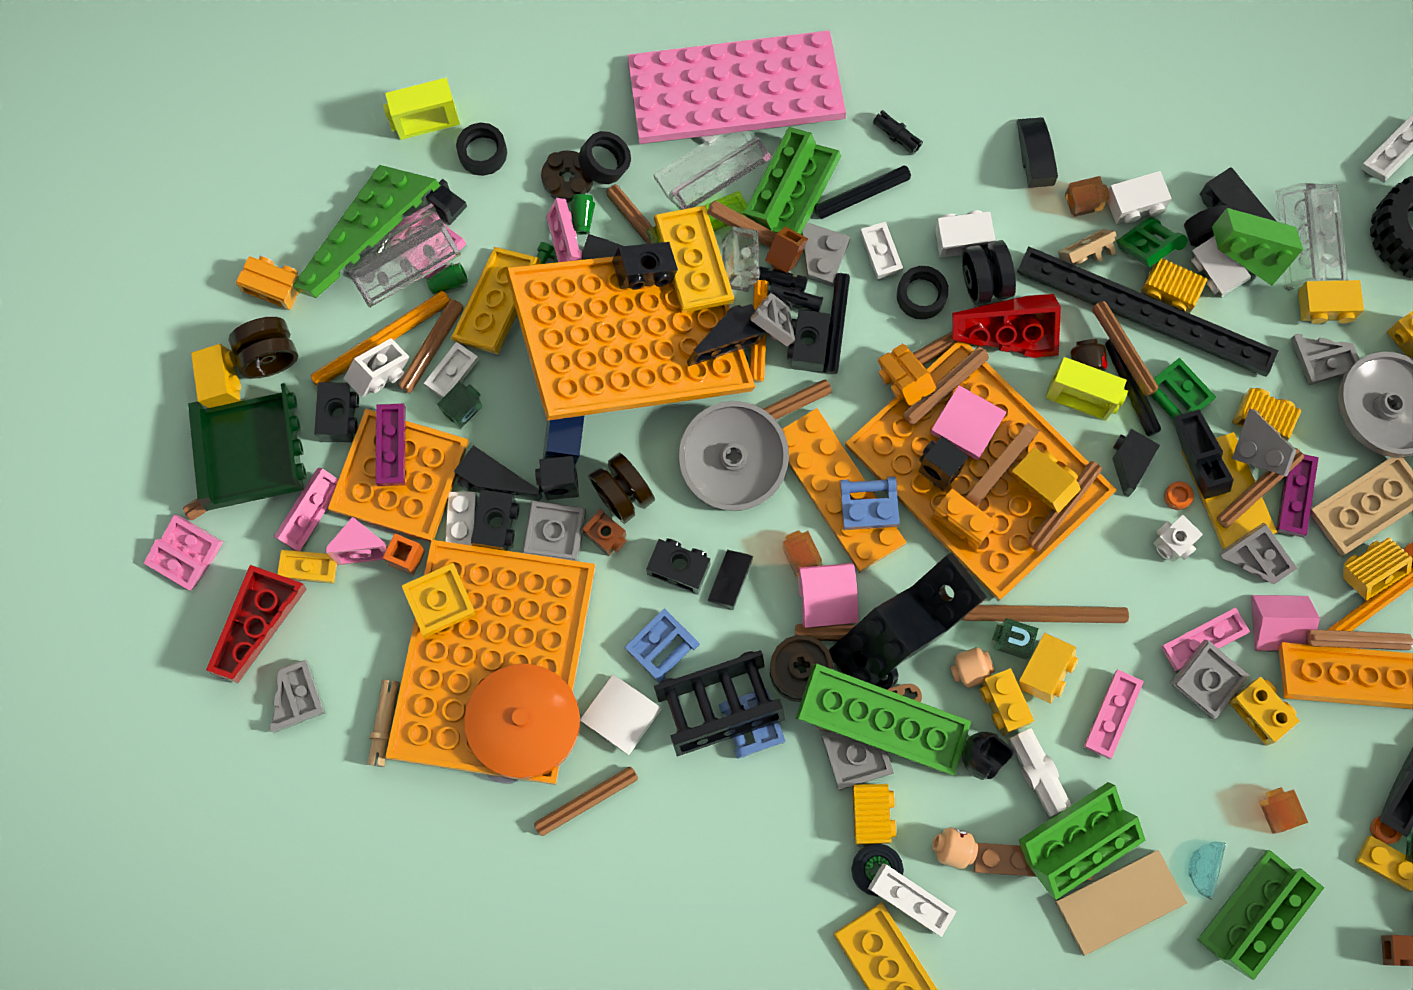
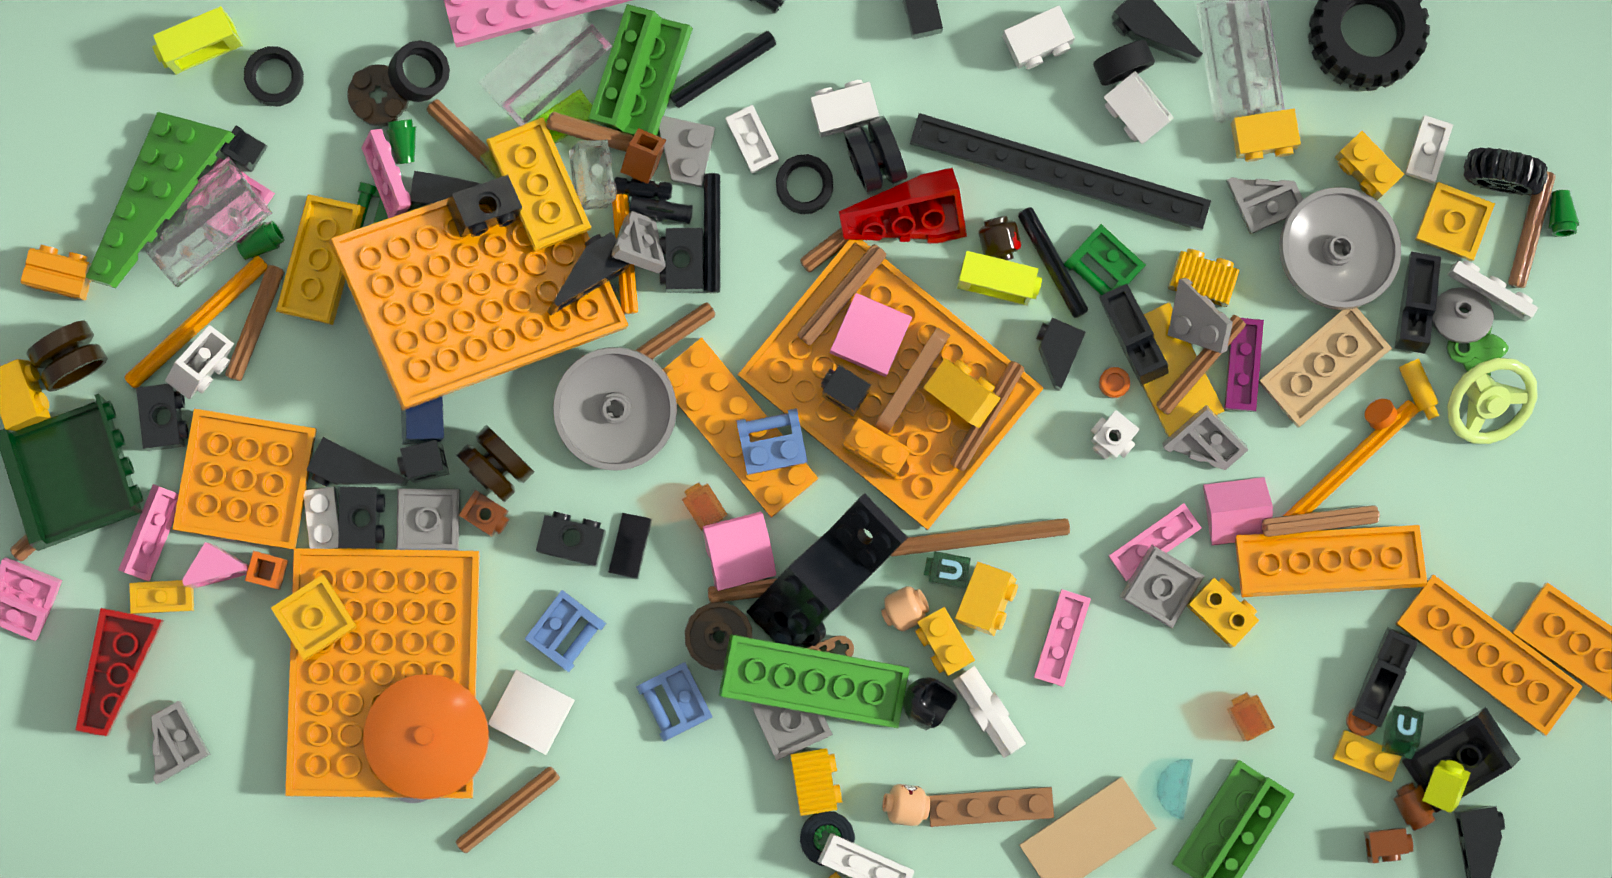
camera: 10 degrees left, 10 degrees up
(383, 723) = (275, 757): tan pin -> none
(390, 444) = (230, 448): magenta plate -> none
(451, 370) = (283, 350): white plate -> none
(460, 404) = (300, 388): clear green brick -> none
(728, 727) = (660, 702): black fence -> none
(906, 374) = (795, 288): light orange brick -> none
(1081, 840) = (1038, 779): bright green slope -> none
(1086, 196) = (980, 41): clear orange brick -> none
(1093, 244) = (987, 102): tan plate -> none
(1125, 348) = (1038, 222): medium nougat axle -> none
(1147, 248) = (1050, 97): green plate -> none
(1174, 285) = (1087, 138): yellow brick -> none
(1257, 243) = (1172, 84): bright green wedge -> none
(1377, 568) = (1334, 438): yellow brick -> none

